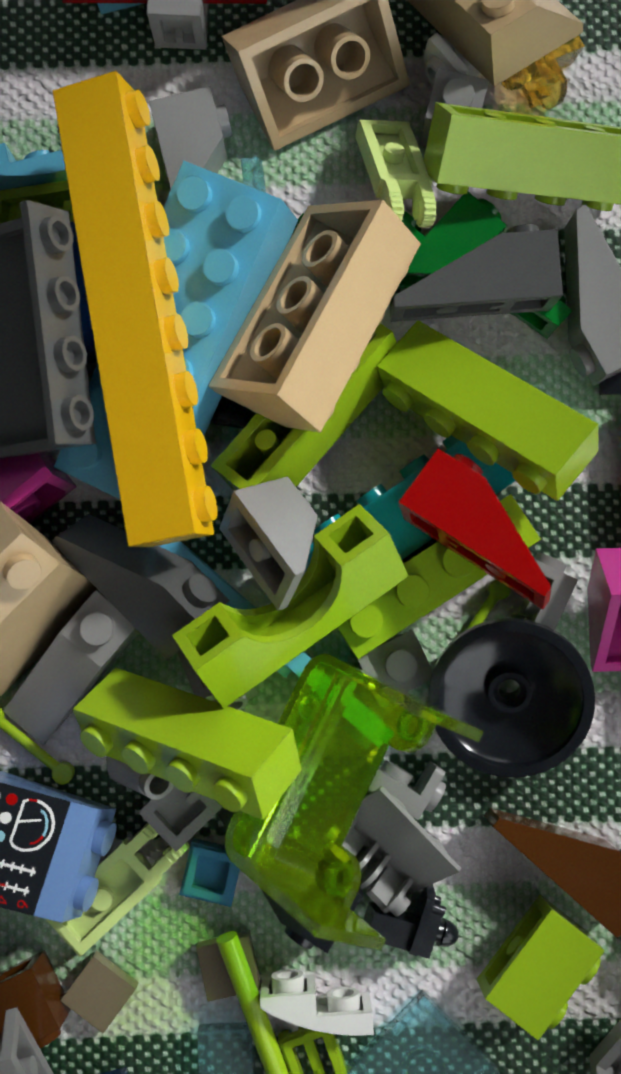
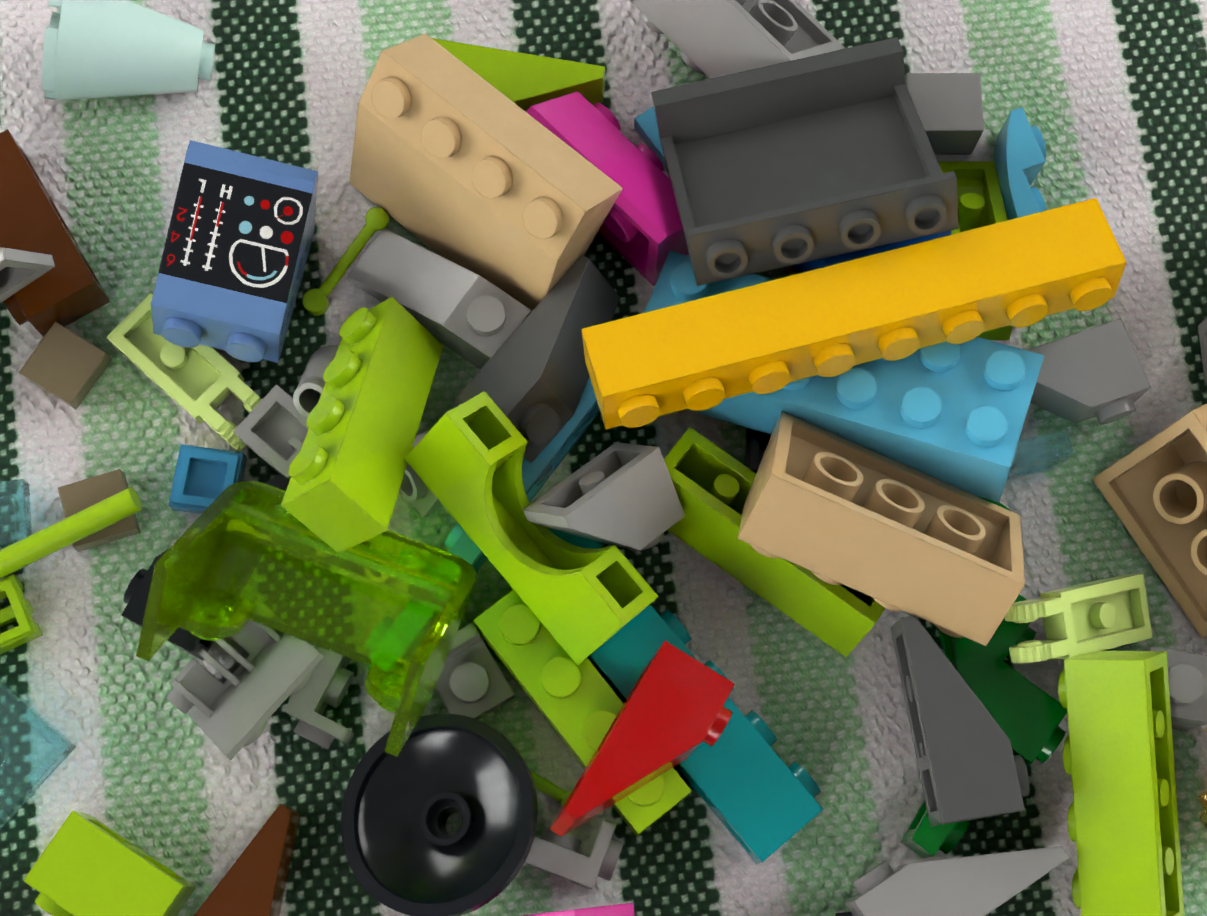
camera: 85 degrees right, 10 degrees down
(293, 999) = (59, 595): white slope -> none
(417, 927) = (149, 722): black piece -> none
(489, 410) = (791, 750): lime brick -> none

